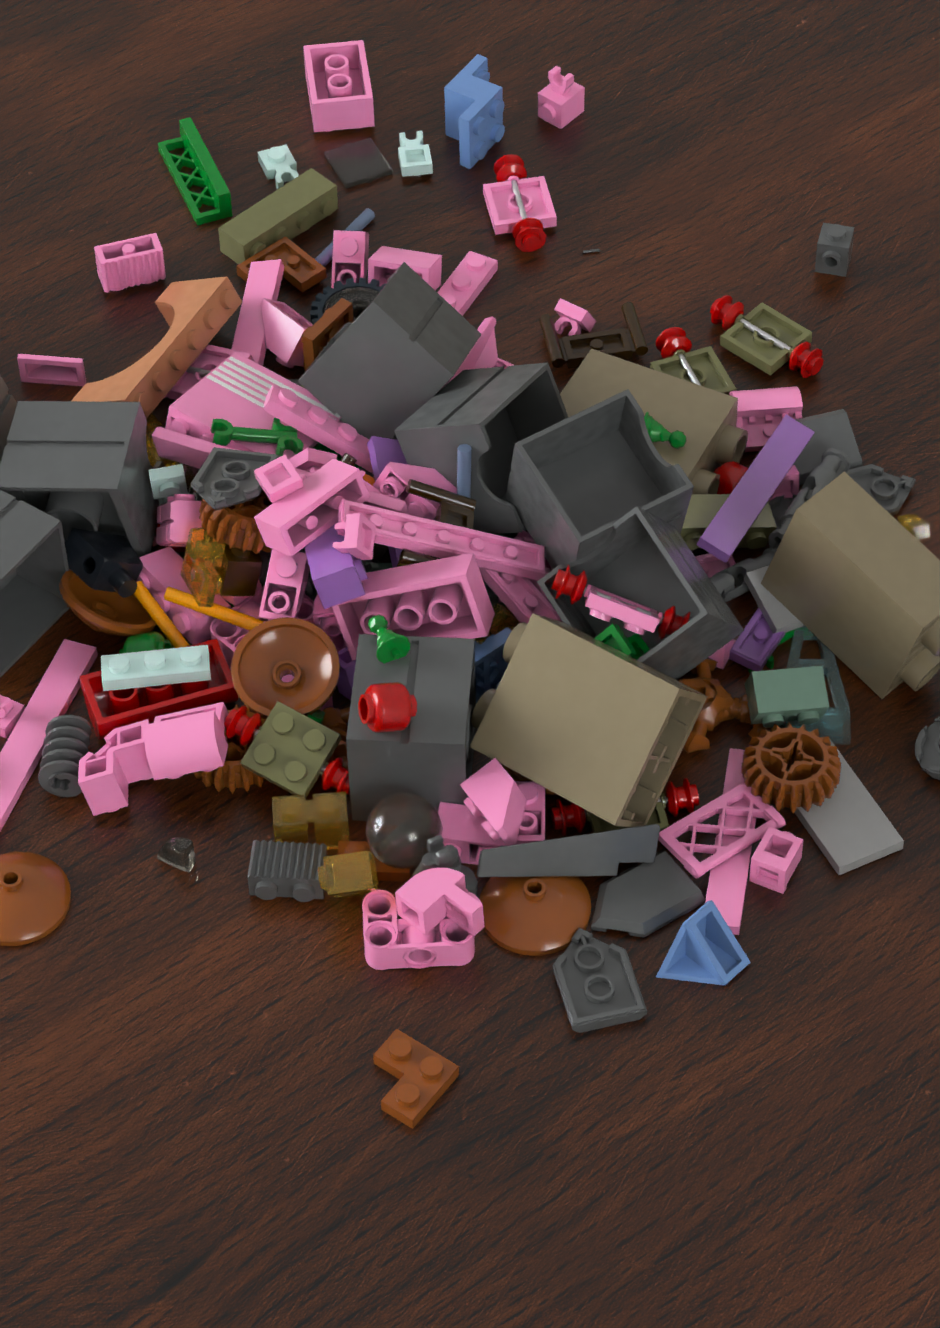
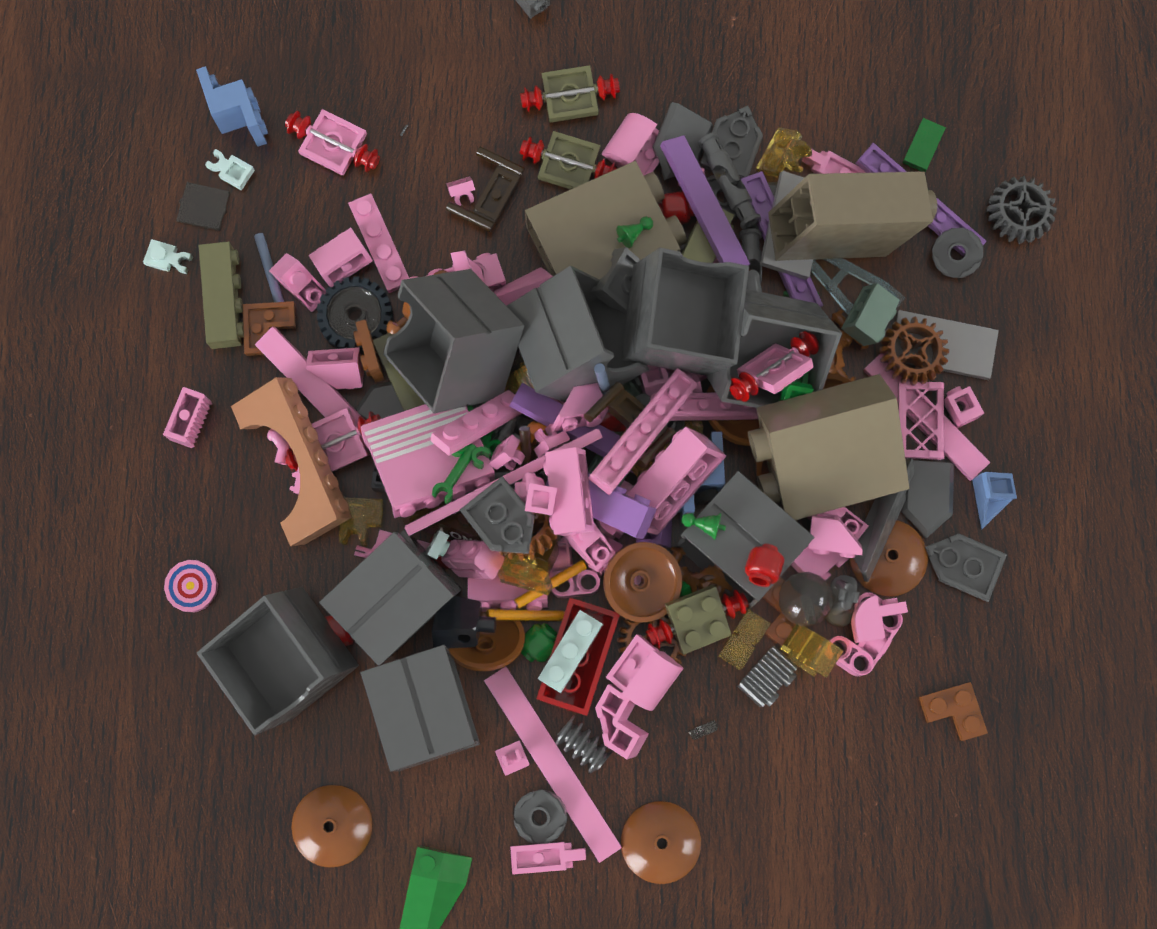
camera: 55 degrees left, 30 degrees up
(51, 370) = (238, 527): bright pink slope -> none
(205, 174) = (130, 305): green fence -> none
(339, 86) = (129, 168): bright pink brick -> none
(358, 536) = (631, 488): bright pink tile -> none
(561, 99) = (260, 45): bright pink brick -> none

